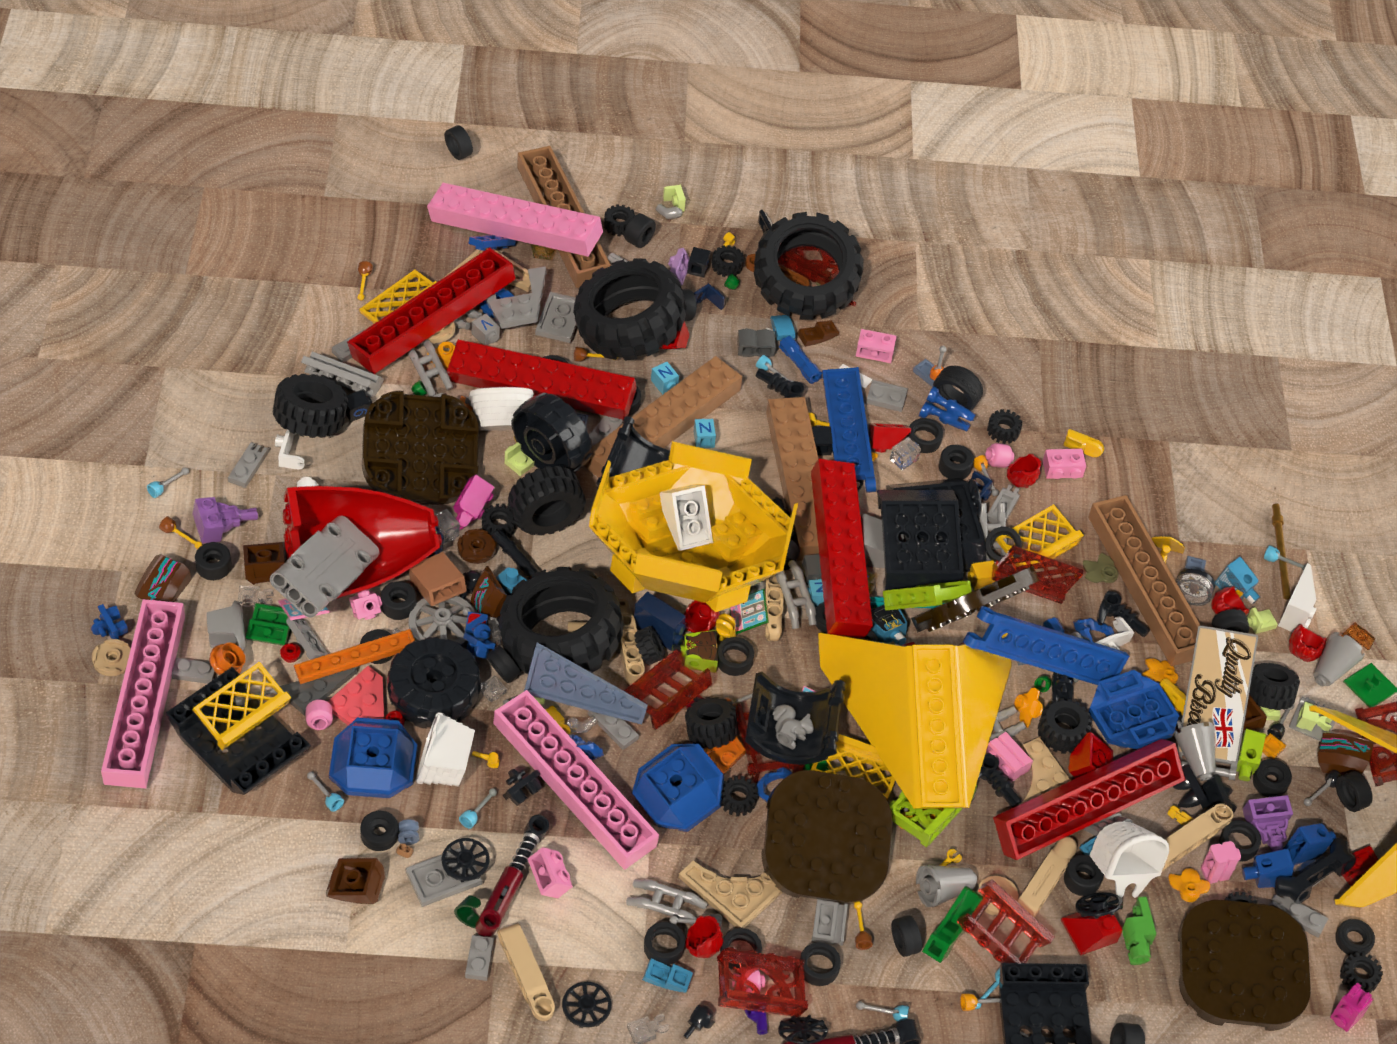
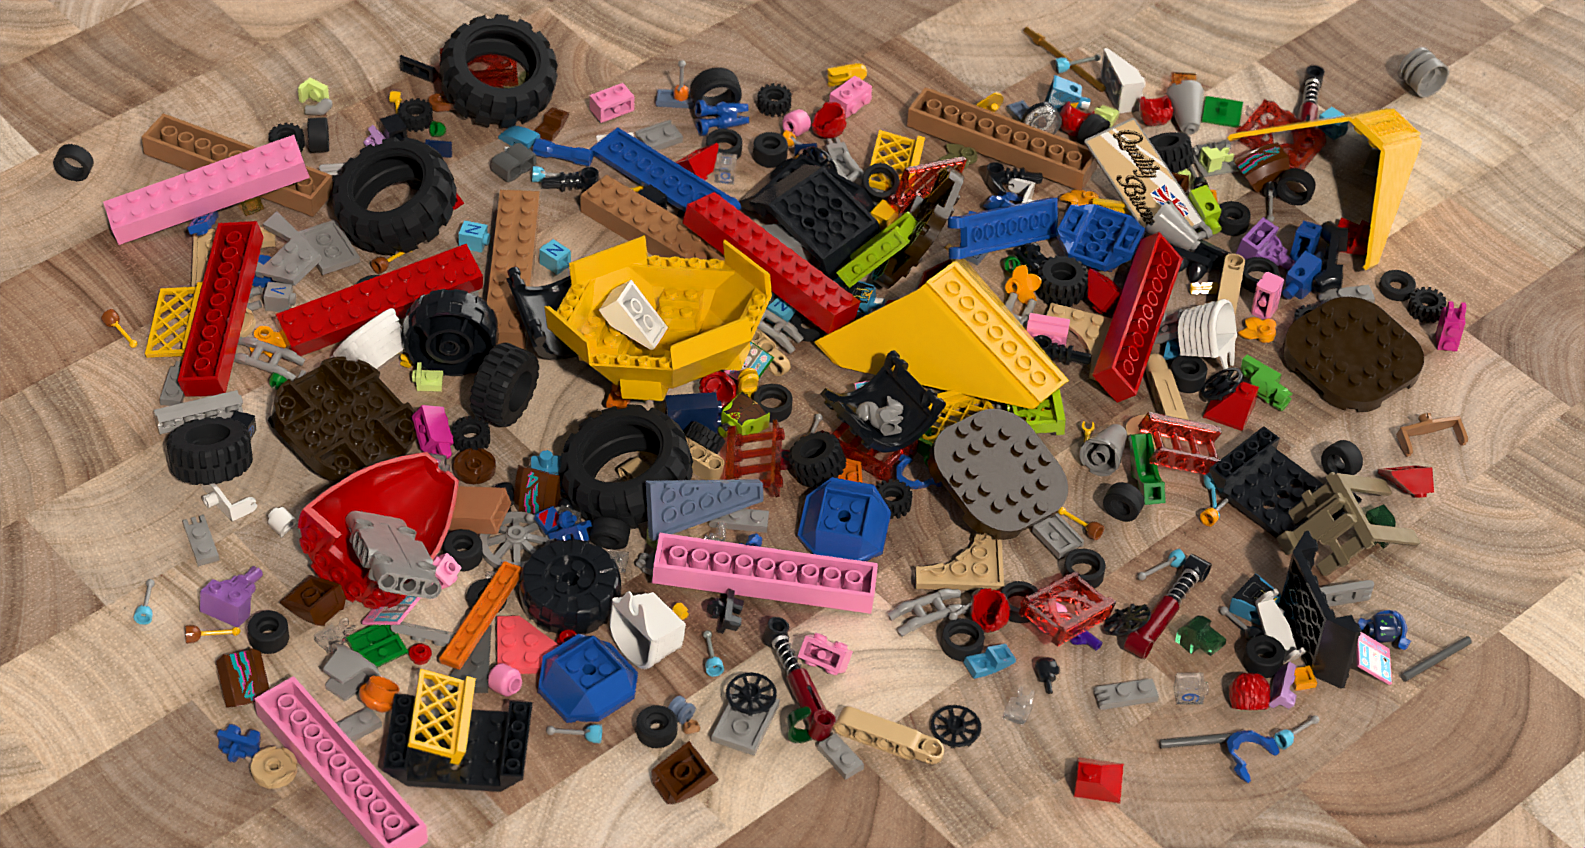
camera: 40 degrees left, 5 degrees down
(509, 548) = (509, 447): black pin -> none

